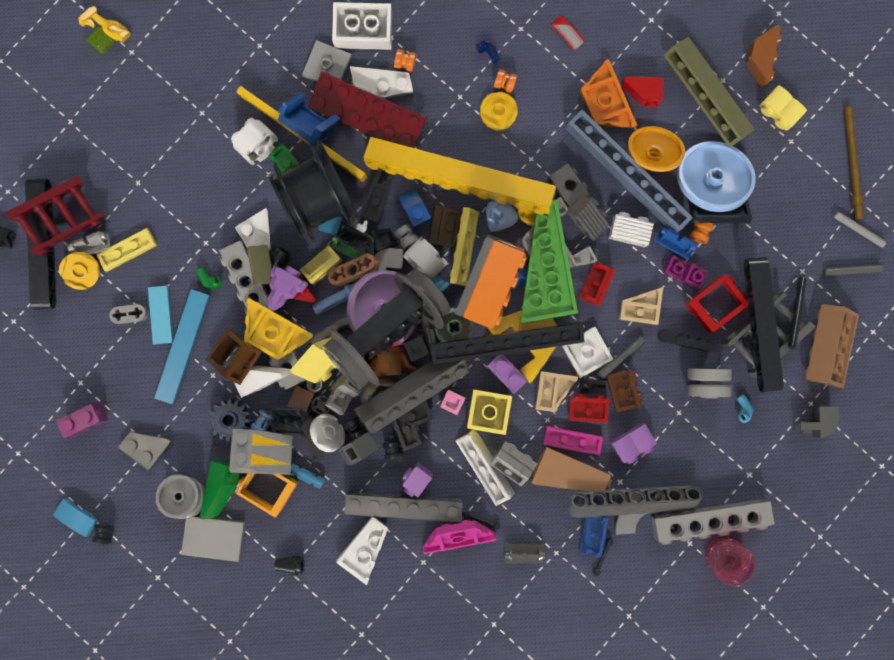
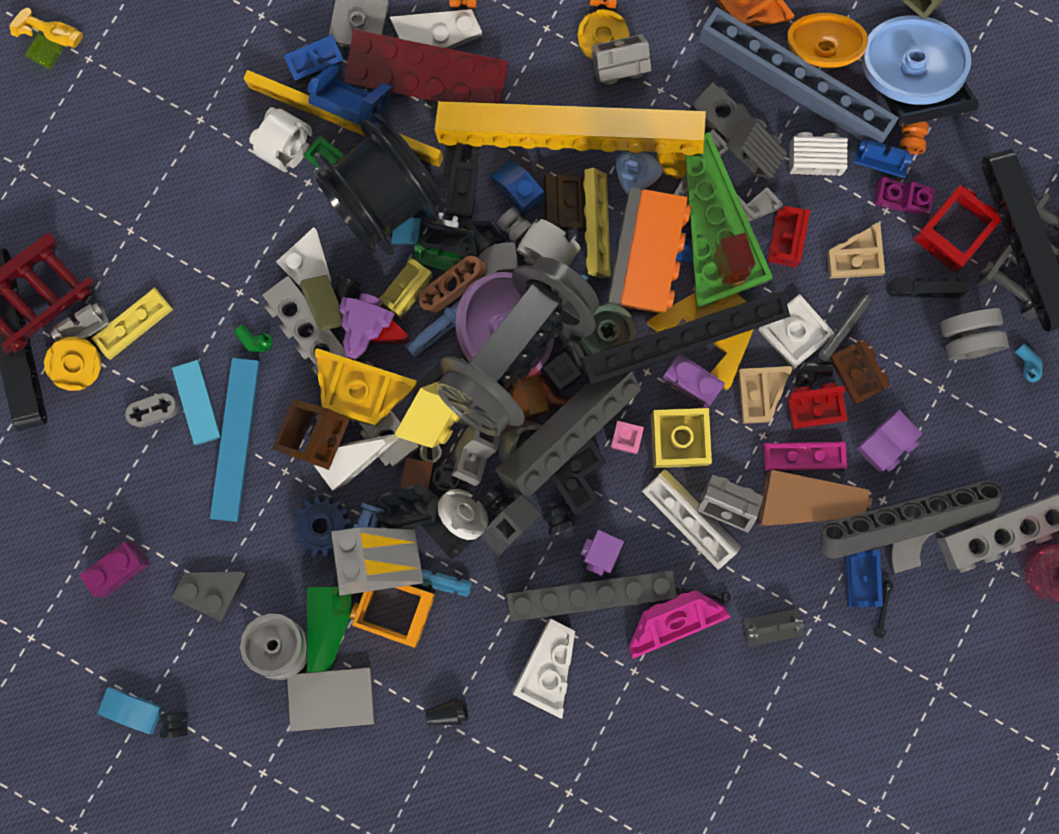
camera: 10 degrees left, 5 degrees down
(288, 86) = (313, 57): none -> blue hinge
(507, 132) = (621, 59): none -> light grey brick
(552, 297) = (734, 259): none -> clear red brick

